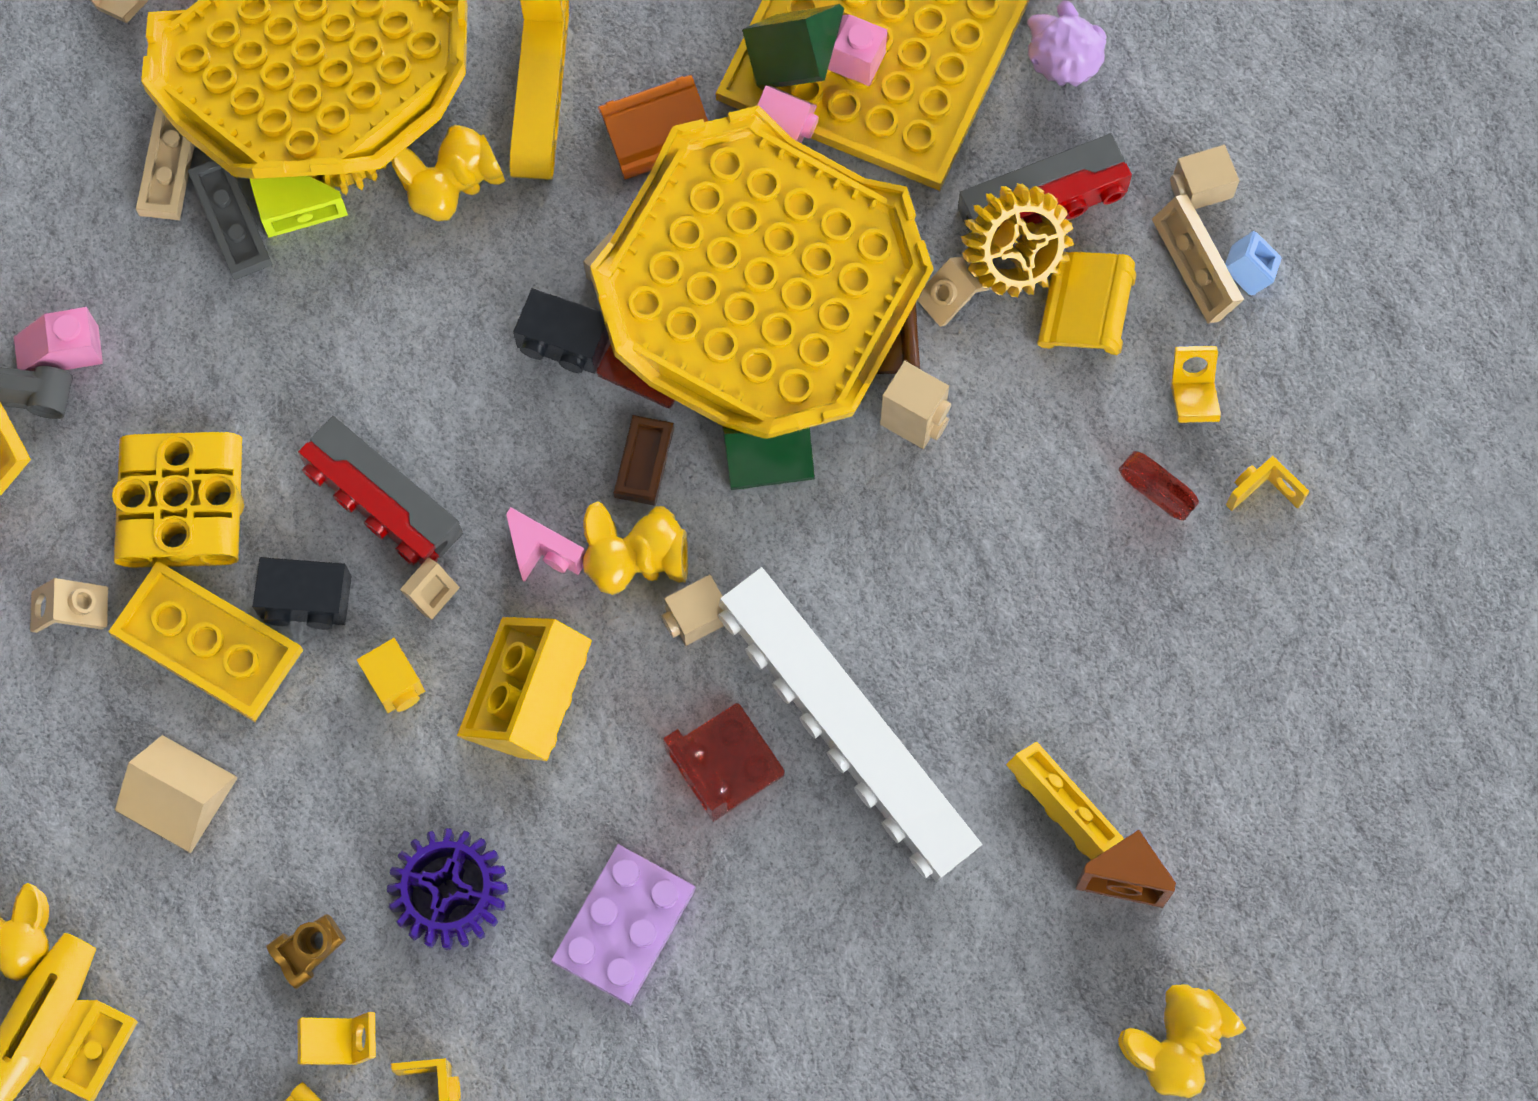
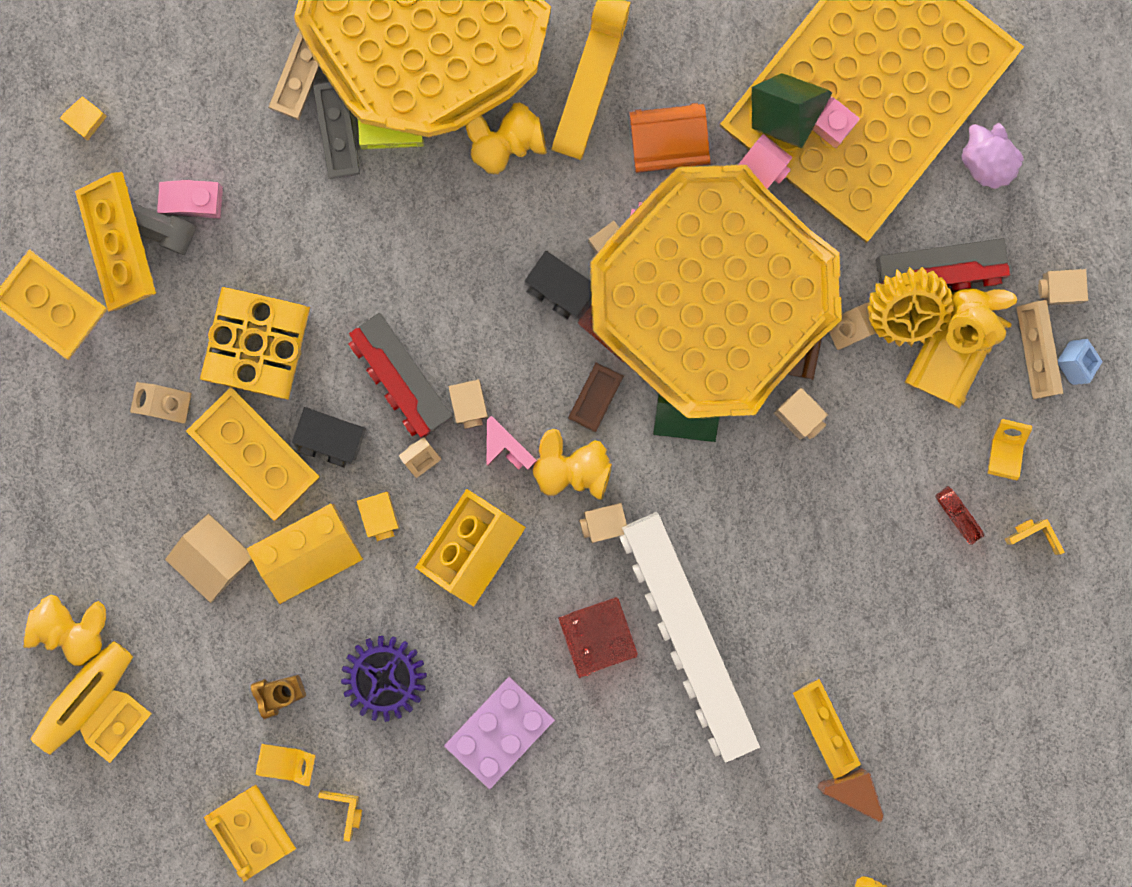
camera: 10 degrees right, 15 degrees up
(303, 750) = (305, 553): none -> yellow slope
(478, 504) = (468, 403): none -> tan brick
(1108, 235) = (974, 322): none -> yellow animal

